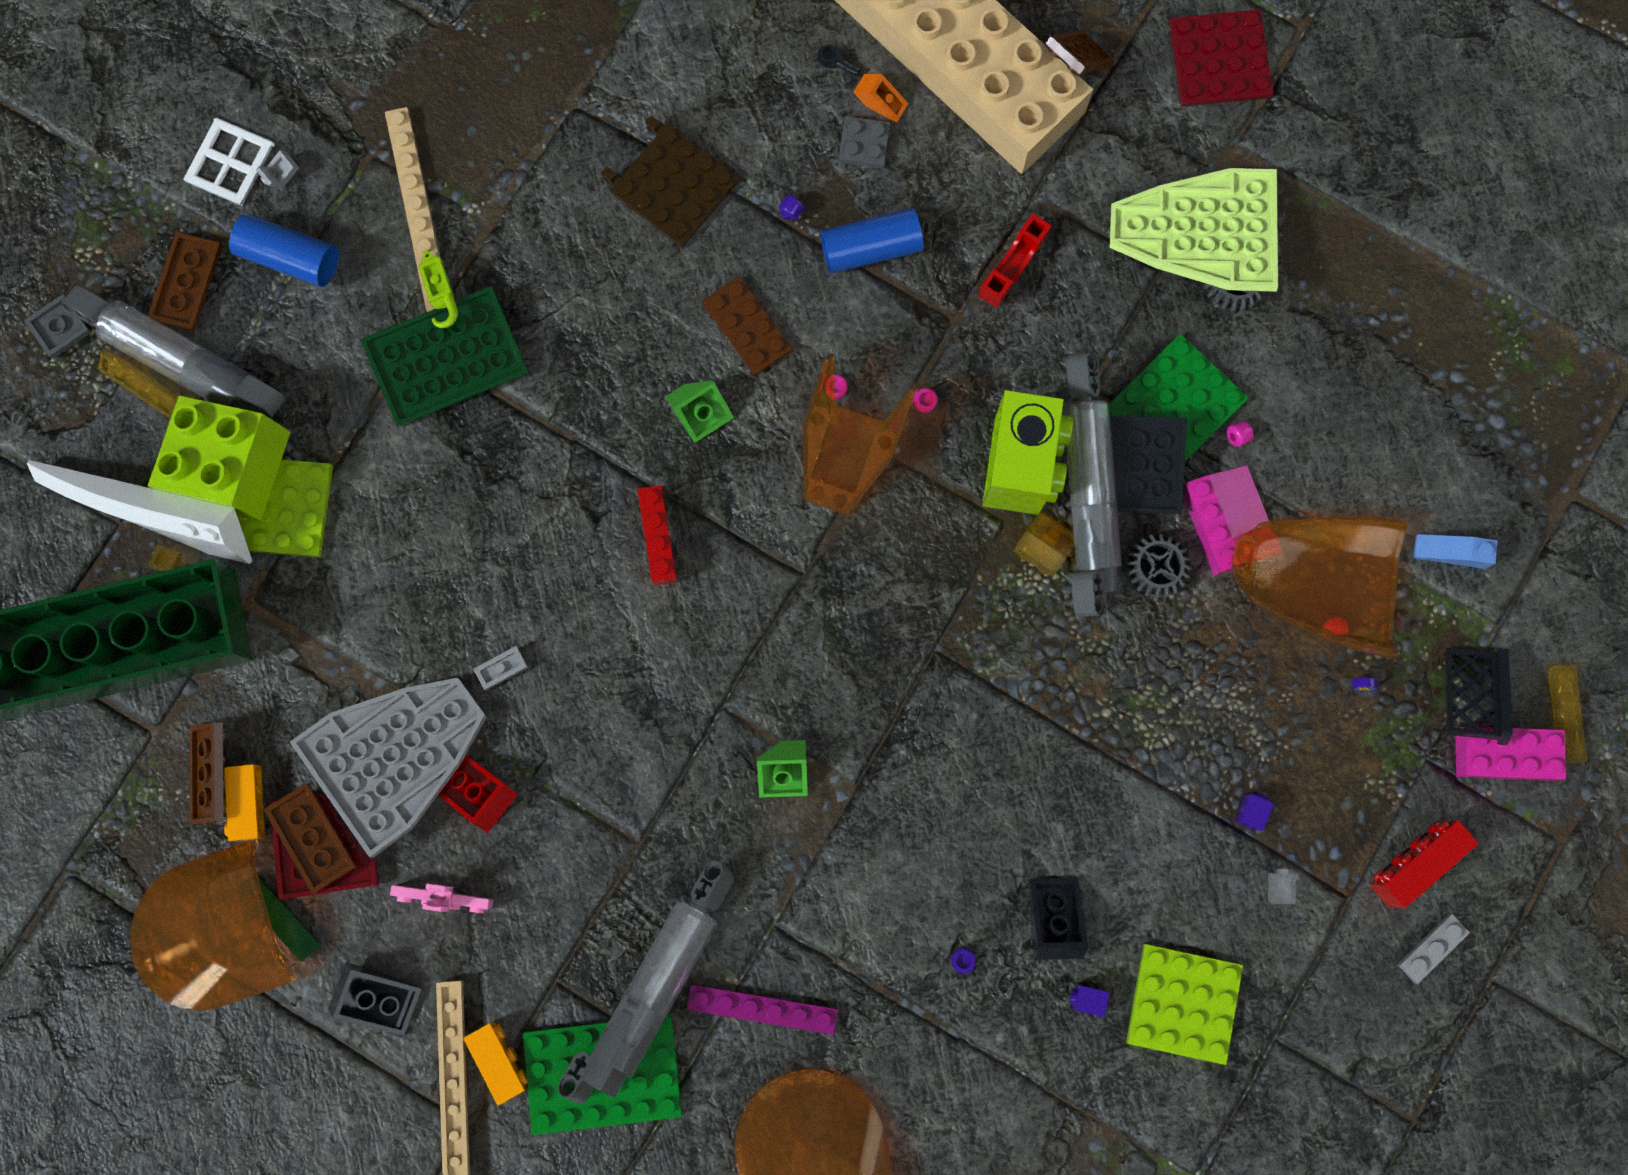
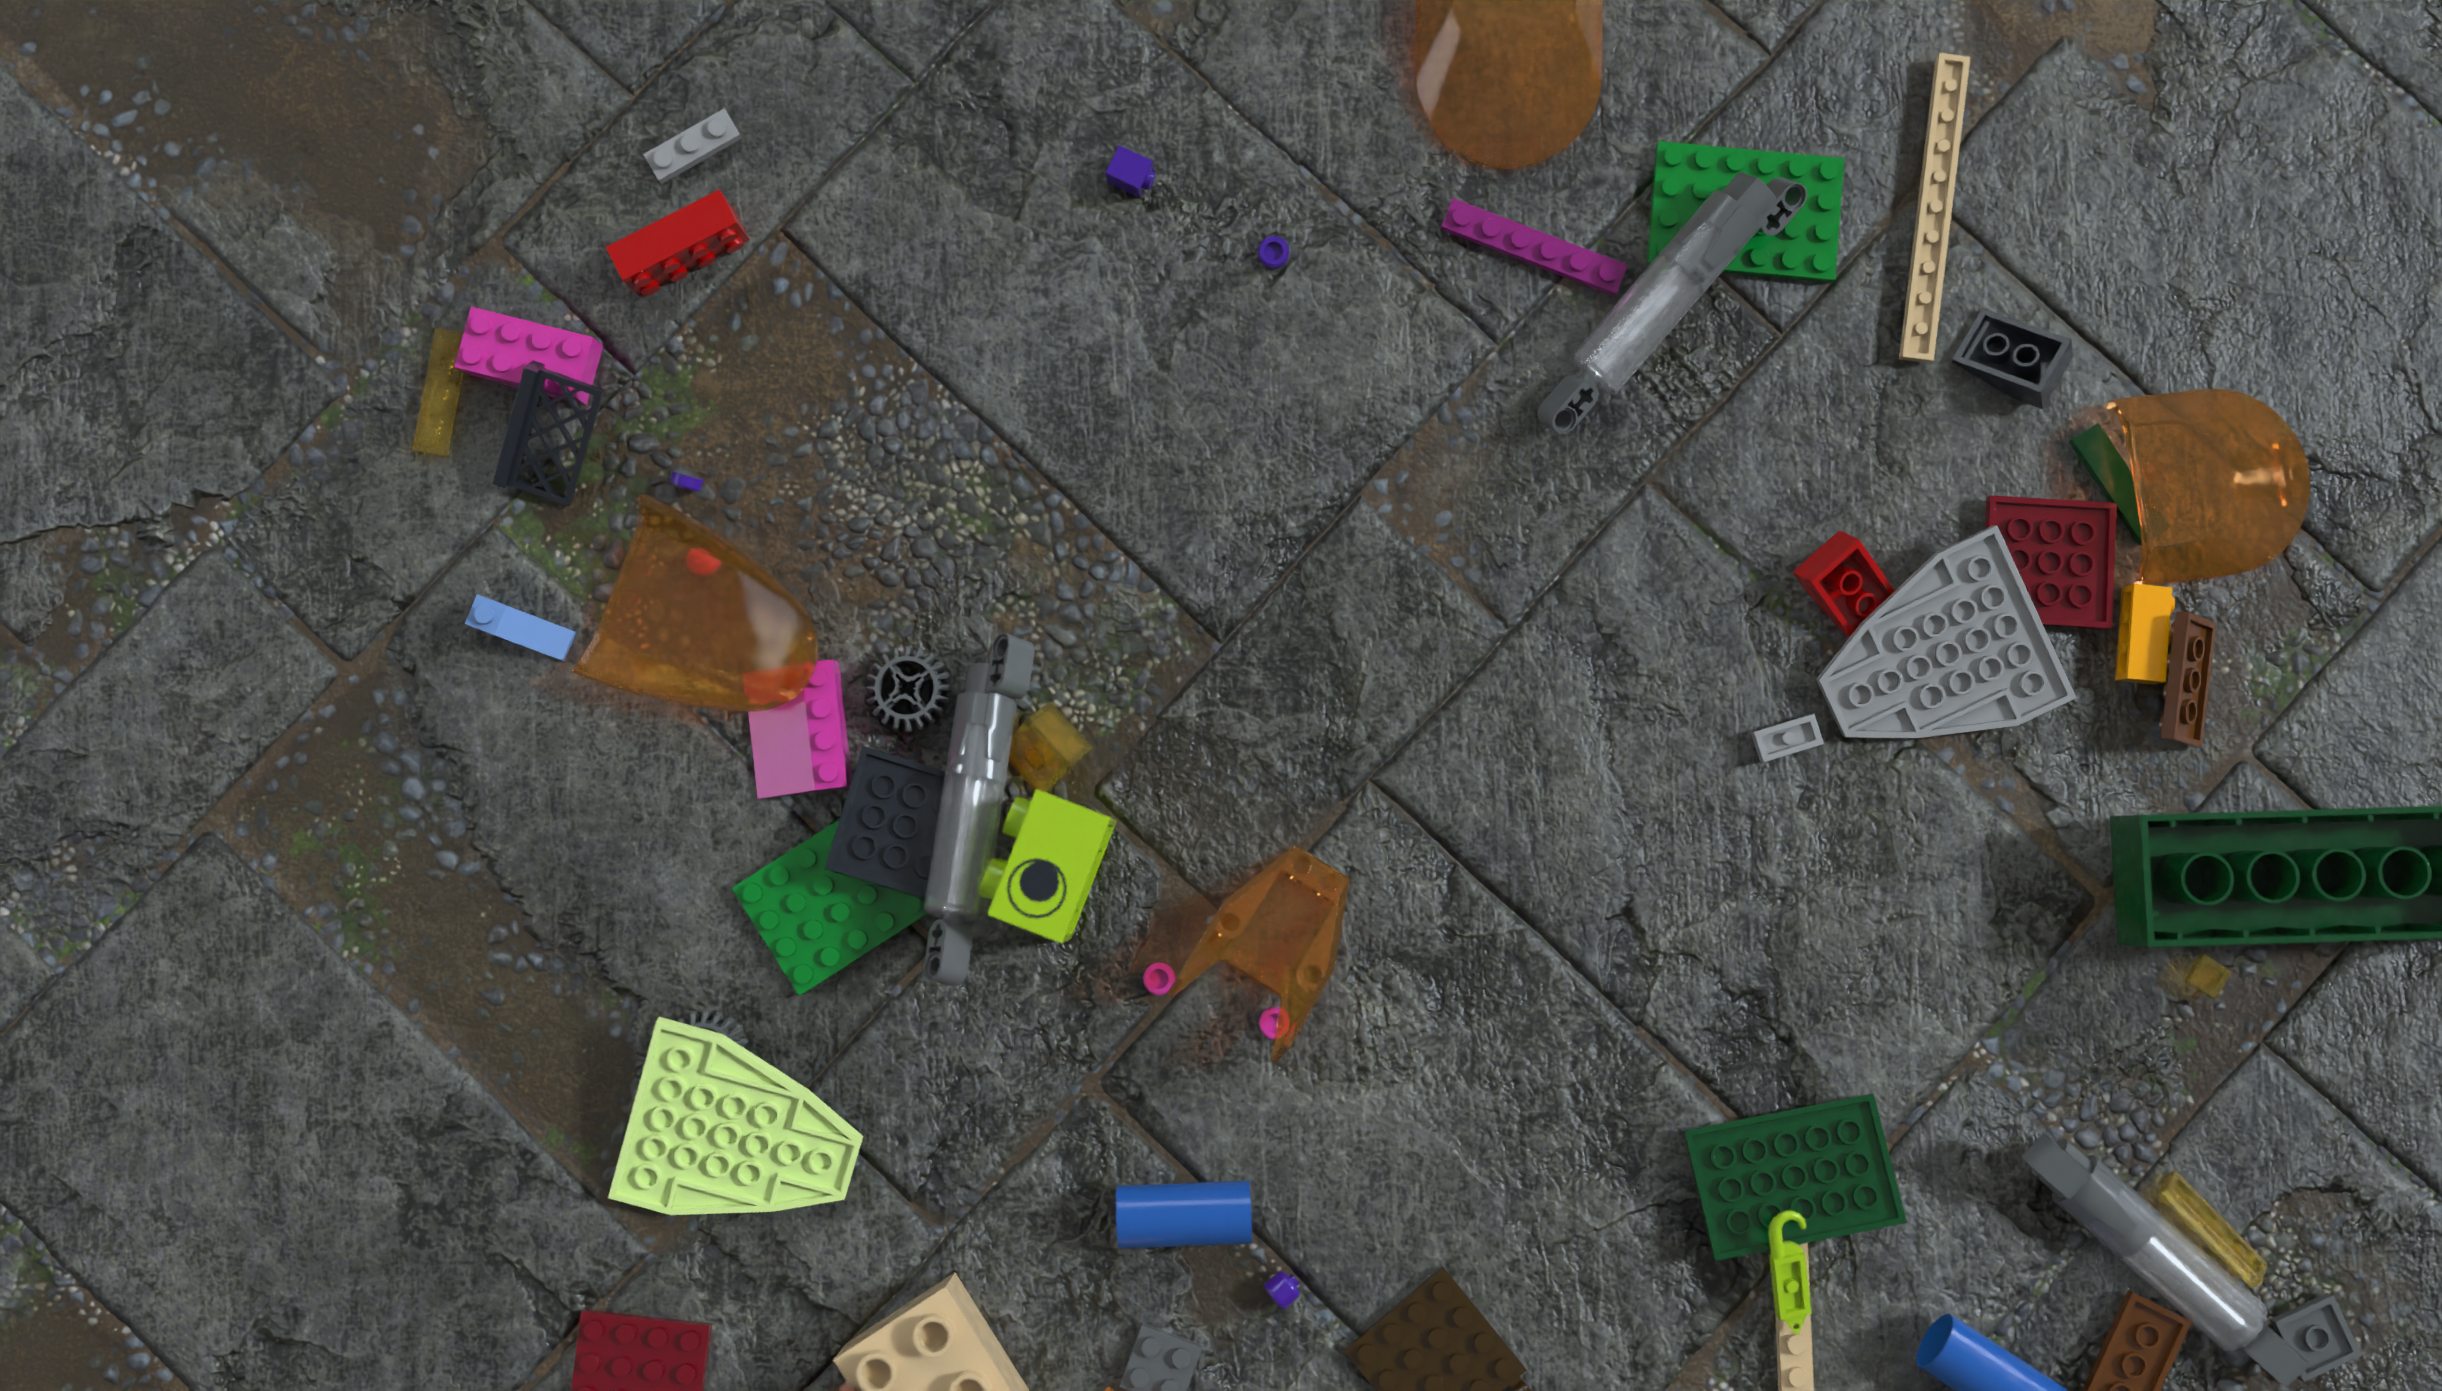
camera: 170 degrees left, 5 degrees up
(185, 519) = (2224, 1043): white wedge -> none
(220, 456) = (2121, 1092): lime brick -> none
(294, 512) = (2046, 1018): lime plate -> none
(310, 838) = (2066, 569): reddish brown plate -> none
(440, 898) = (1912, 458): bright pink plate -> none
(496, 1062) = (1873, 250): light orange brick -> none
(657, 535) = (1554, 863): red arch -> none
(699, 408) = (1464, 1030): bright green slope -> none
(746, 326) = (1377, 1134): reddish brown plate -> none
(783, 770) = (1448, 530): bright green slope -> none
(1015, 261) = (996, 1144): red arch -> none
(1057, 919) = (1146, 276): black slope -> none
(1184, 1004) = (1014, 145): lime plate -> none
(1240, 433) = (755, 842): dark pink piece -> none
(1254, 811) = (868, 354): dark purple brick -> none
(1282, 887) = (857, 256): clear bracket -> none

